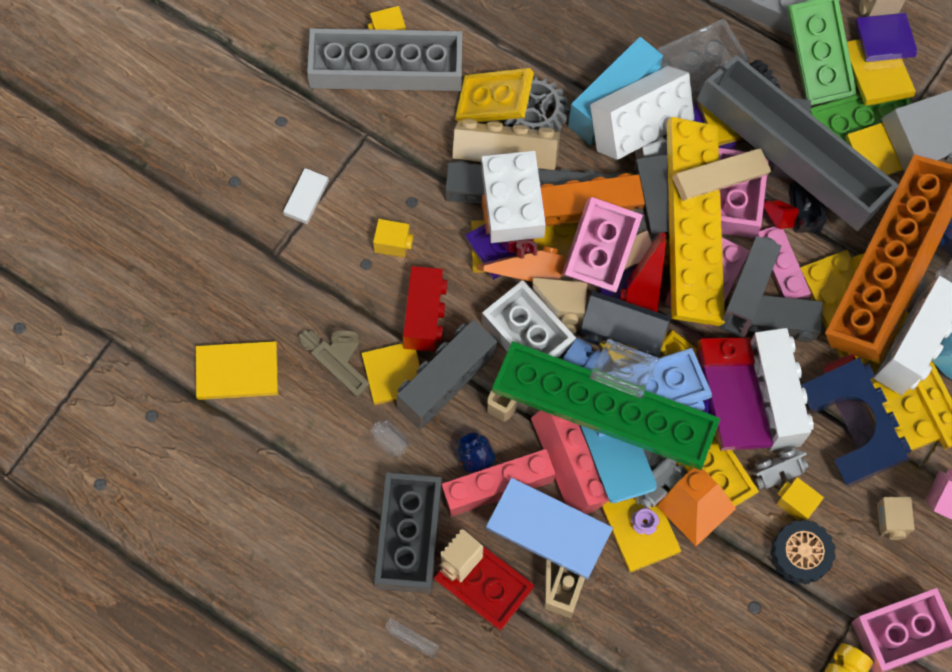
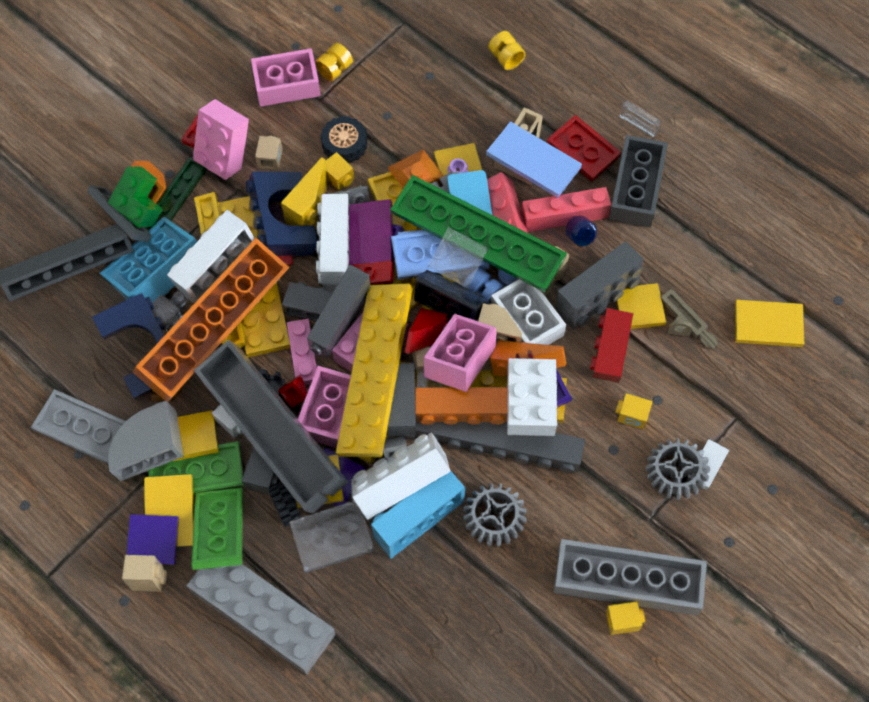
camera: 170 degrees left, 5 degrees down
(339, 158) = (669, 469): none -> light grey gear
(389, 438) = (649, 252): clear brick -> none
(460, 556) = (602, 149): tan brick -> none
(478, 140) = (526, 475): tan brick -> none
(495, 95) = (530, 524): yellow tile -> none
(721, 174) = (344, 399): tan tile -> none
(824, 444) = (302, 202): none -> yellow slope

